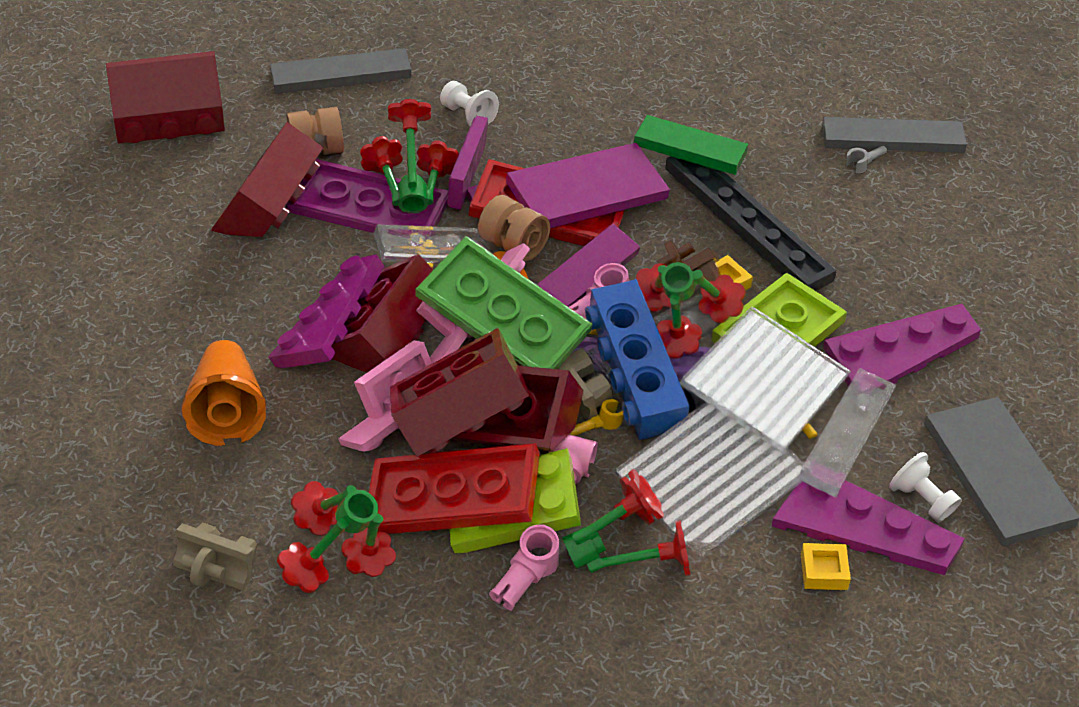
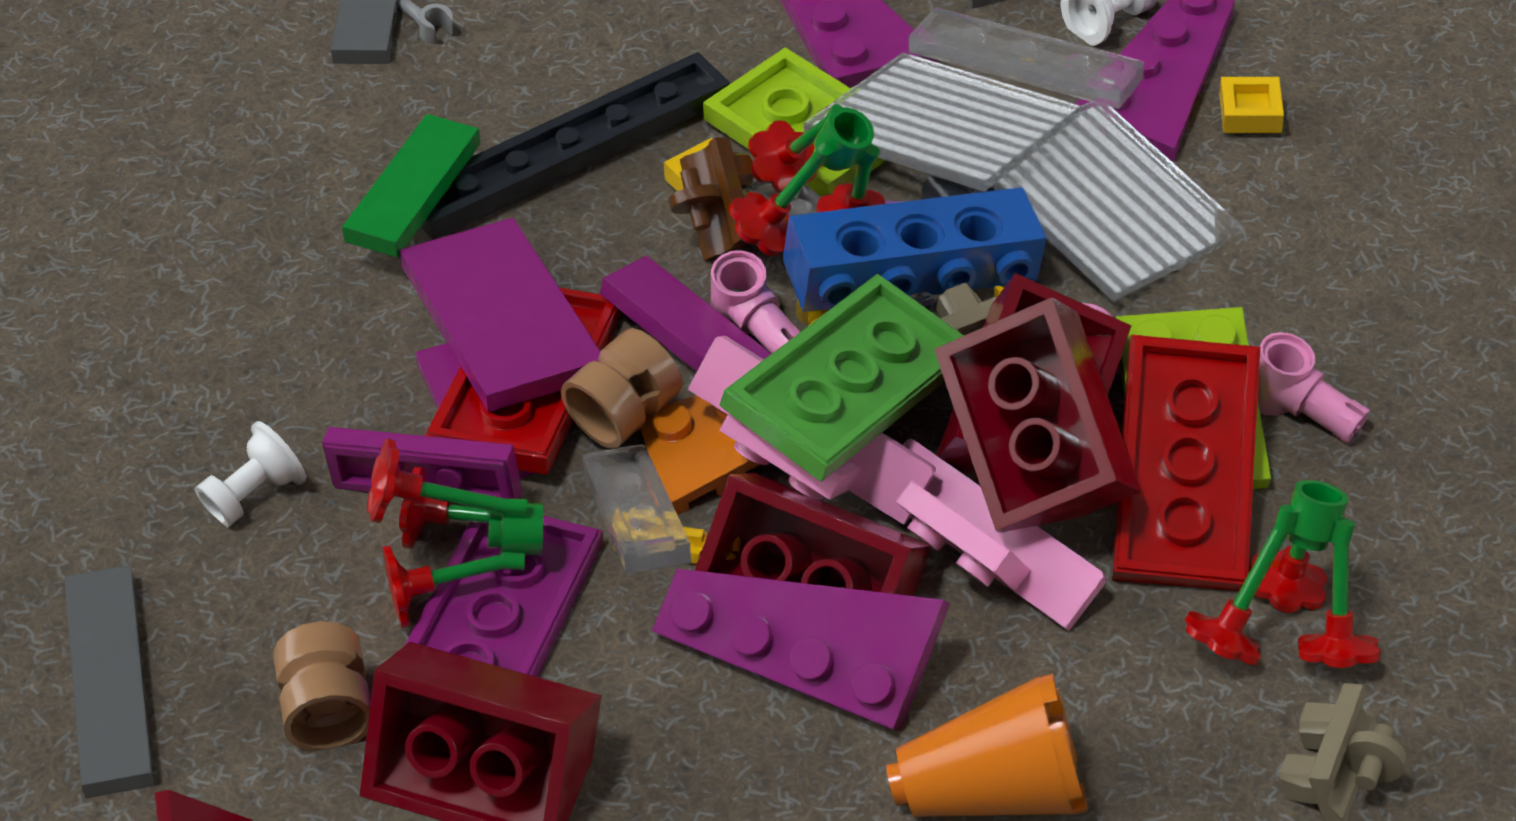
camera: 85 degrees left, 0 degrees up
(639, 499) = (1250, 228): plant -> none

